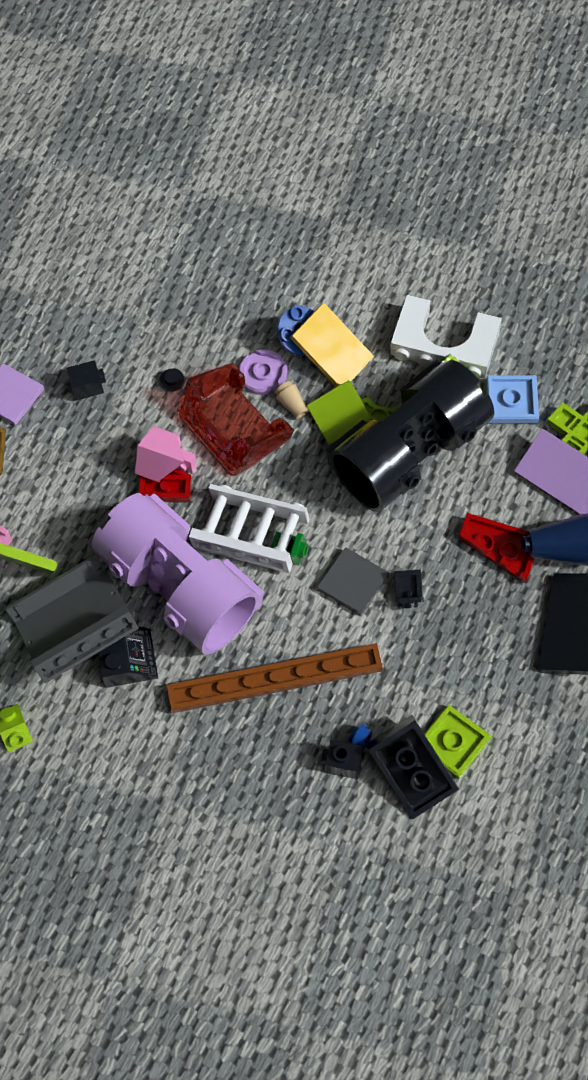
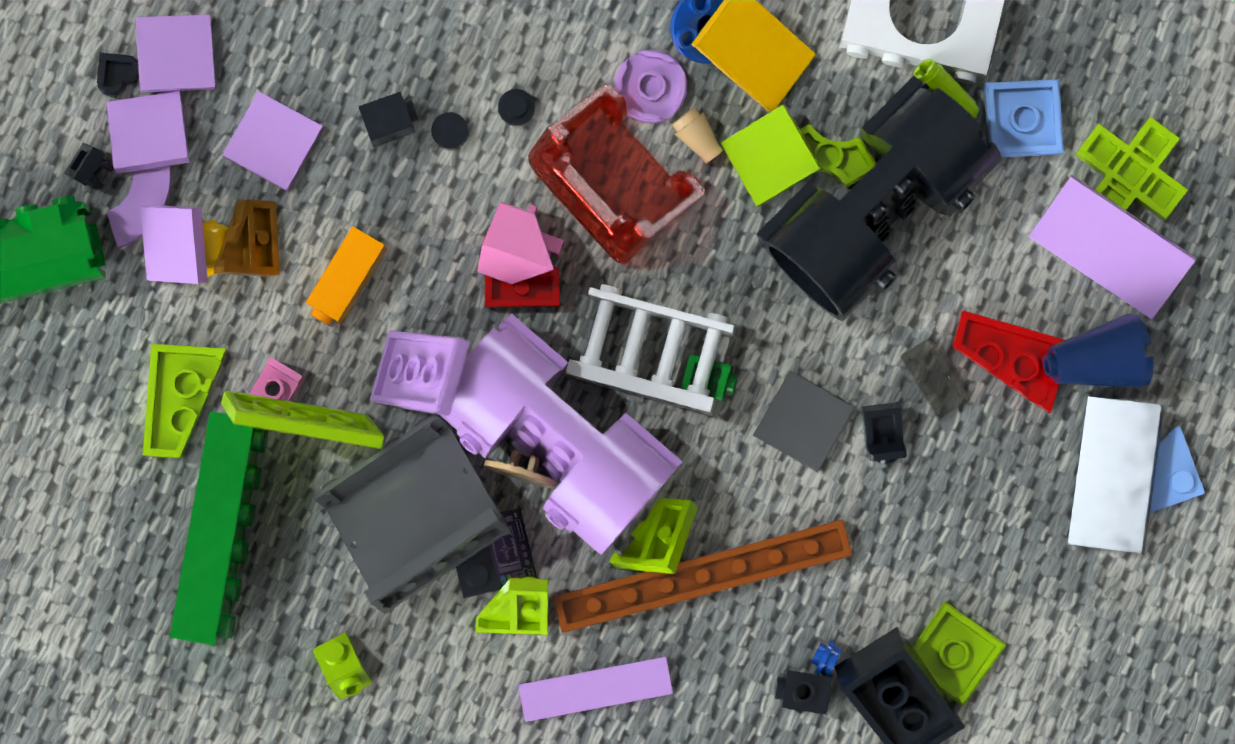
camera: 10 degrees left, 20 degrees up
(46, 474) = (345, 277): none -> light orange brick
(86, 524) = (419, 372): none -> lavender tile
(127, 392) = (450, 131): none -> black tile
(141, 689) = (517, 608): none -> lime wing
(148, 598) = (514, 471): none -> tan piece
(192, 752) = (595, 689): none -> lavender tile
(245, 650) = (659, 538): none -> lime wing
(446, 557) = (934, 377): none -> clear smoke tile

